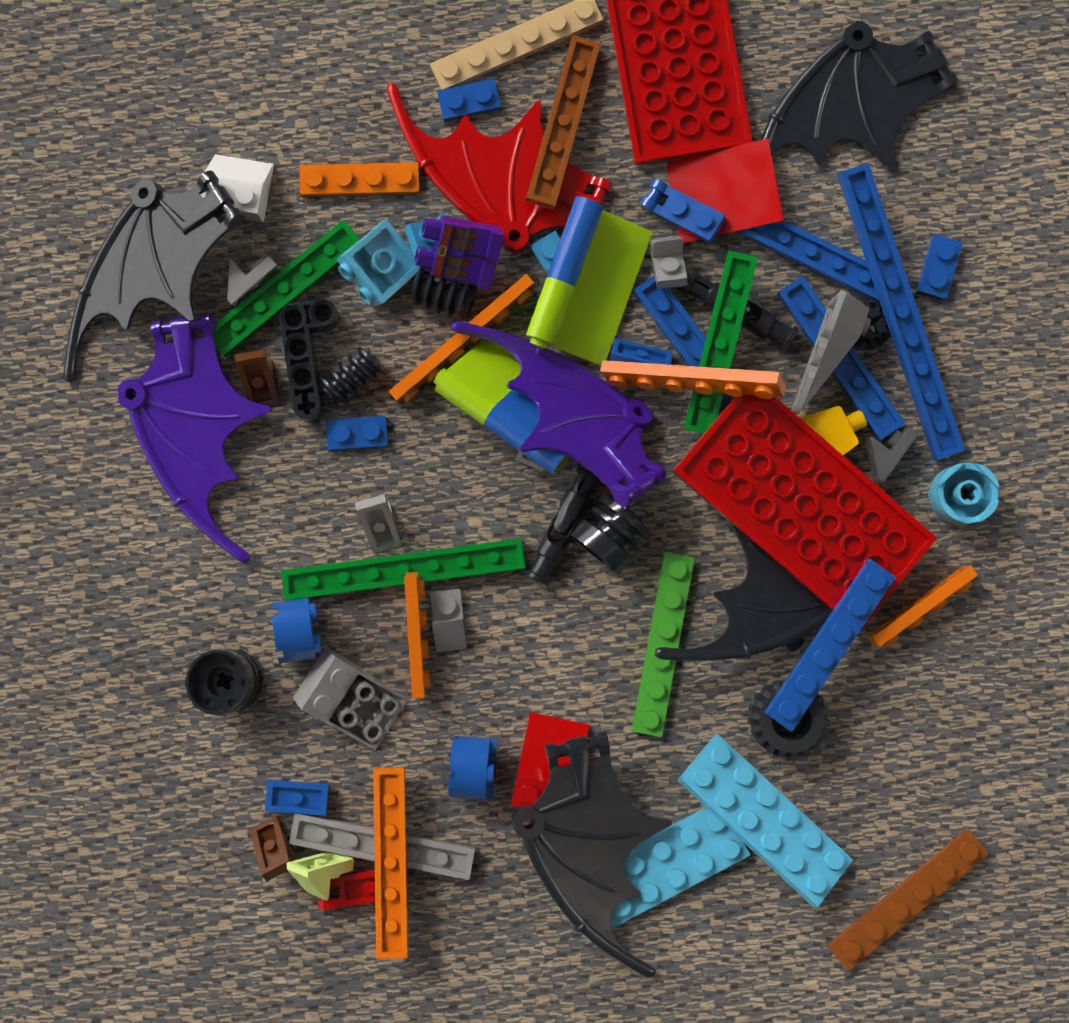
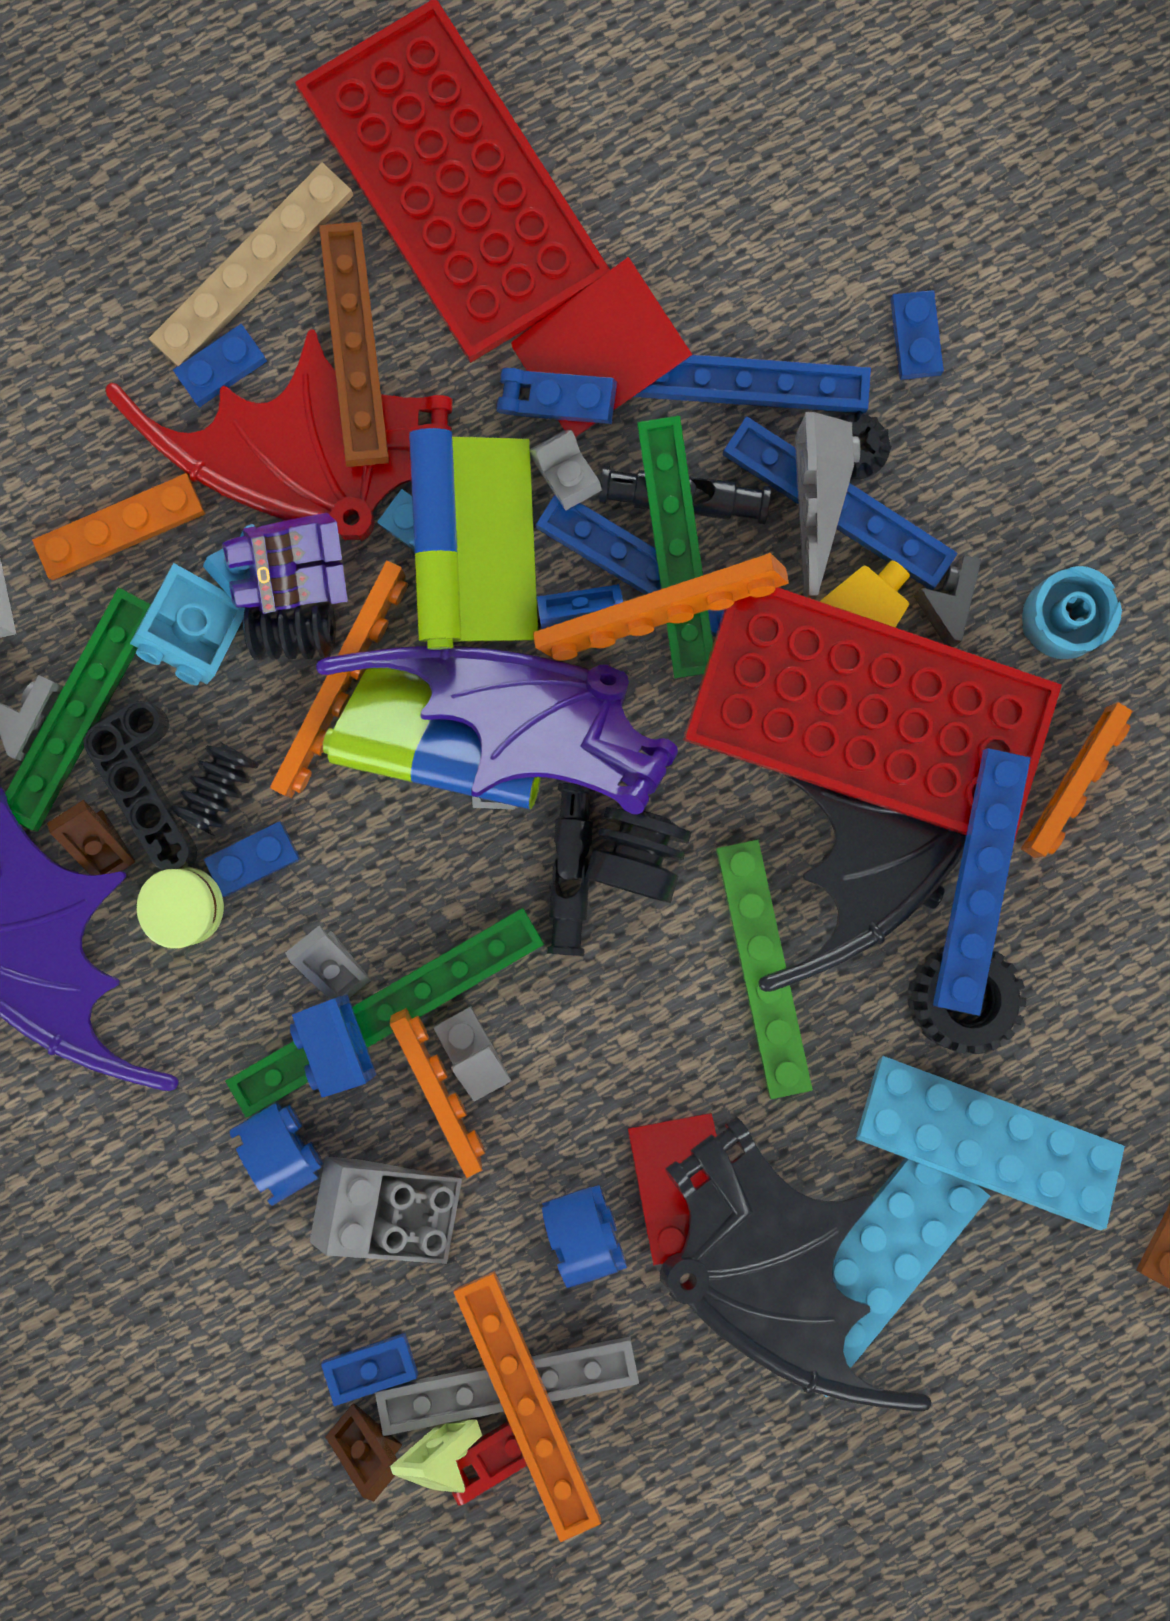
camera: 25 degrees left, 0 degrees up
(207, 677) = (188, 1272): black wheel -> none
(297, 445) = (180, 907): none -> yellowish green head
(360, 575) = (333, 1046): none -> blue slope
(858, 94) = (721, 154): black animal -> none
(900, 311) = (892, 410): blue plate -> none

